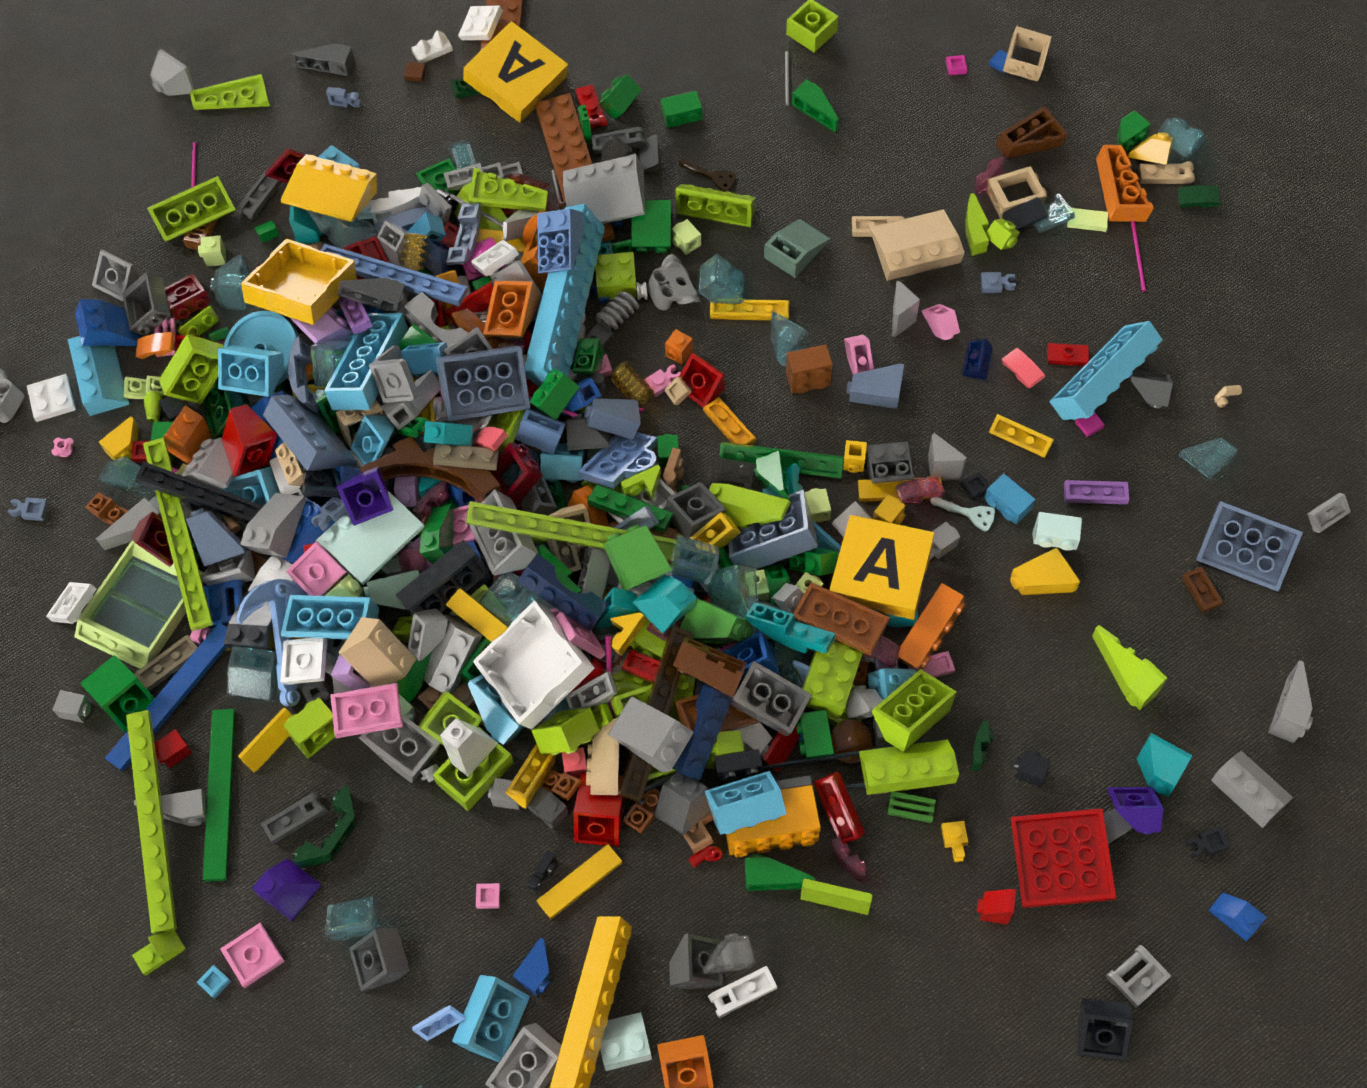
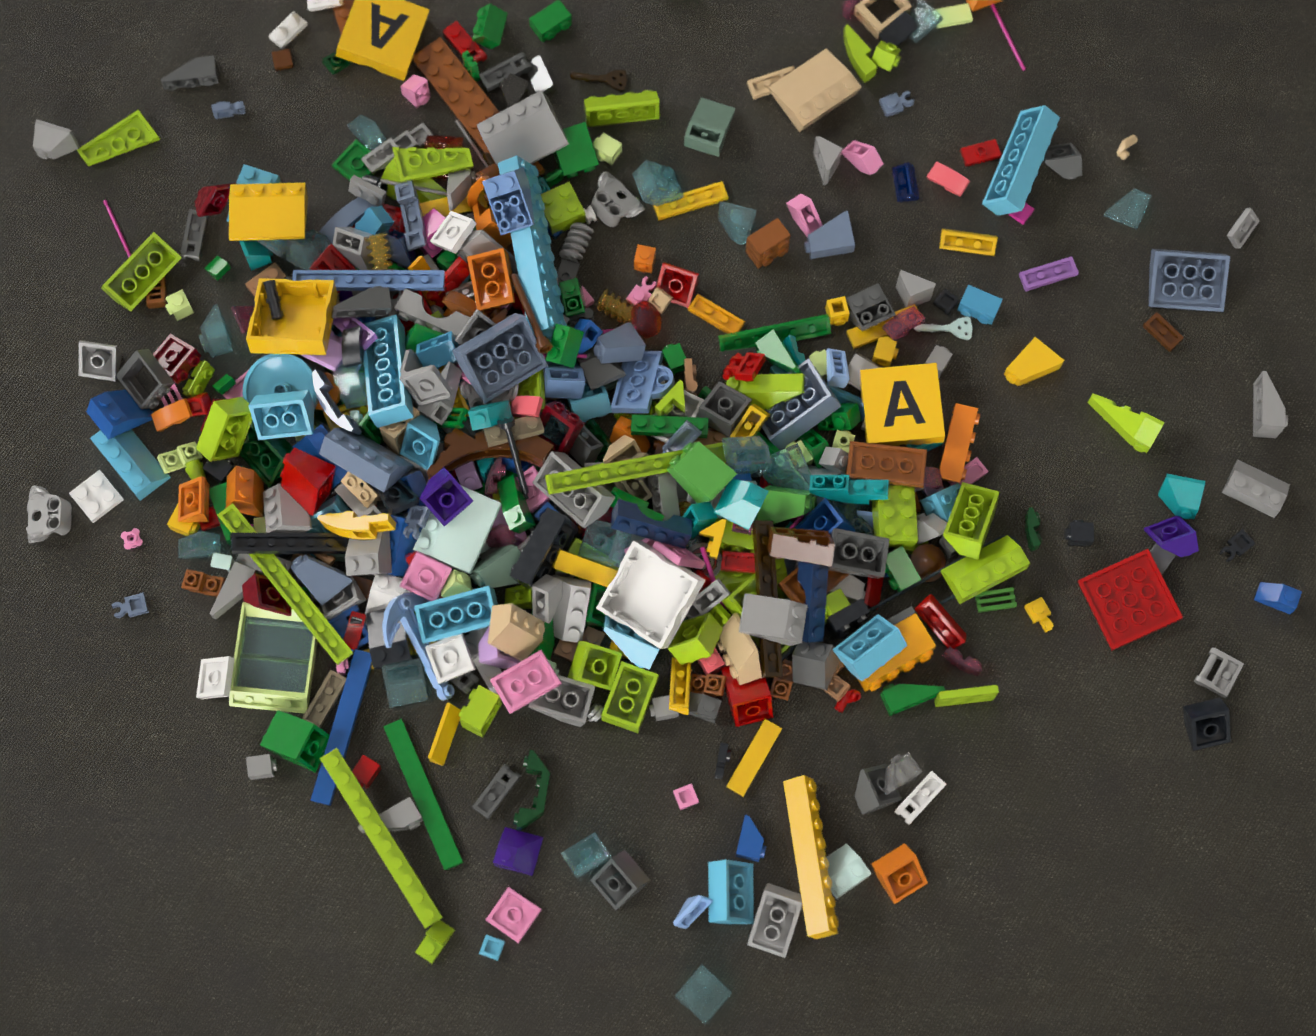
camera: 25 degrees left, 10 degrees up
(133, 494) = (222, 561): none -> light aqua slope
(134, 427) = (194, 501): none -> orange slope
(227, 603) = (354, 629): none -> red sticker
(269, 498) = (351, 526): none -> yellow slope
(289, 260) = (273, 300): none -> black pin
(341, 327) = (351, 346): none -> black slope
(397, 202) = (330, 202): white slope -> none
(457, 445) = (507, 424): none -> black piece
(466, 745) = (626, 683): white slope -> none
(524, 132) = (416, 90): none -> bright pink slope
(530, 382) = (543, 344): none -> reddish brown piece
(654, 402) = (646, 319): none -> clear red tile
(732, 476) = (744, 367): none -> red plate
(829, 511) = (835, 366): none -> light blue slope
(997, 906) = (1093, 657): red slope -> none
(1057, 531) = (1031, 323): light aqua slope -> none

